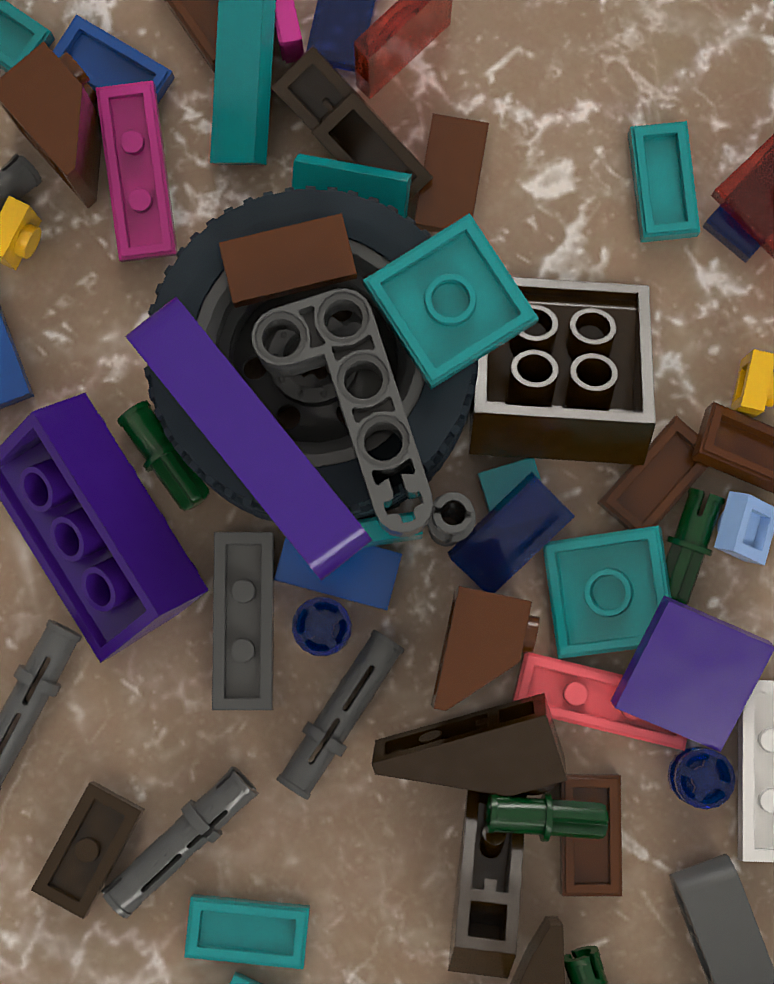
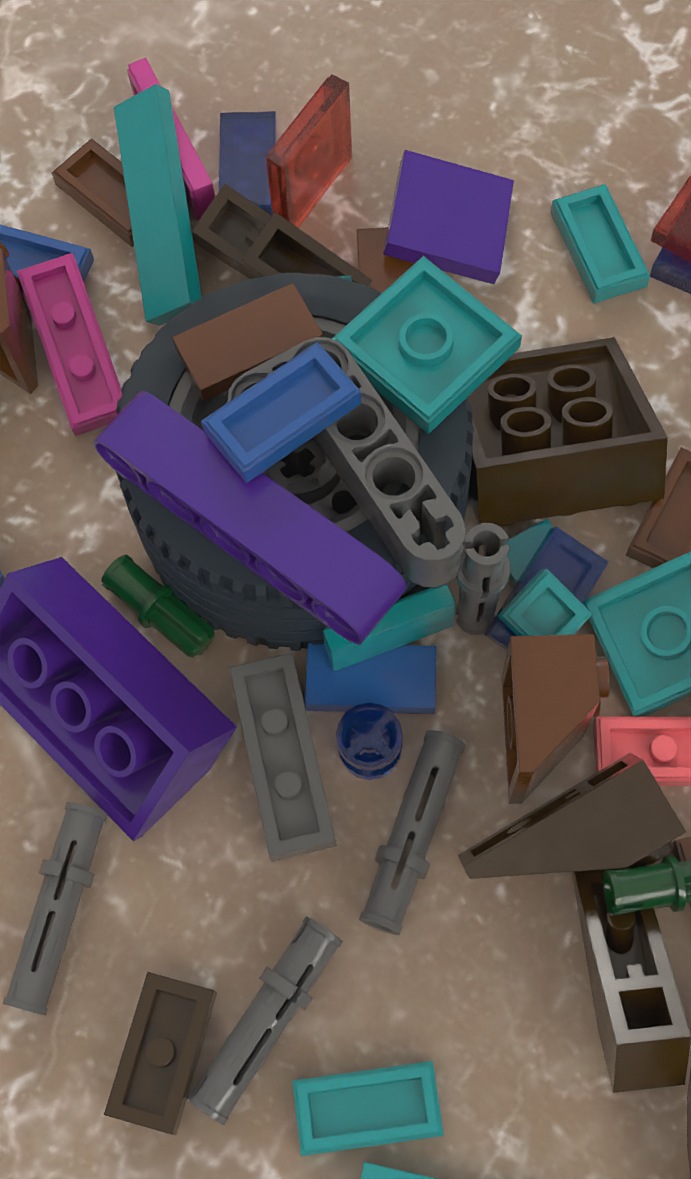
camera: 10 degrees left, 15 degrees down
(297, 360) = (281, 412): none -> blue tile
(502, 554) = (544, 608): none -> teal tile
(524, 123) = (449, 217): none -> dark purple tile

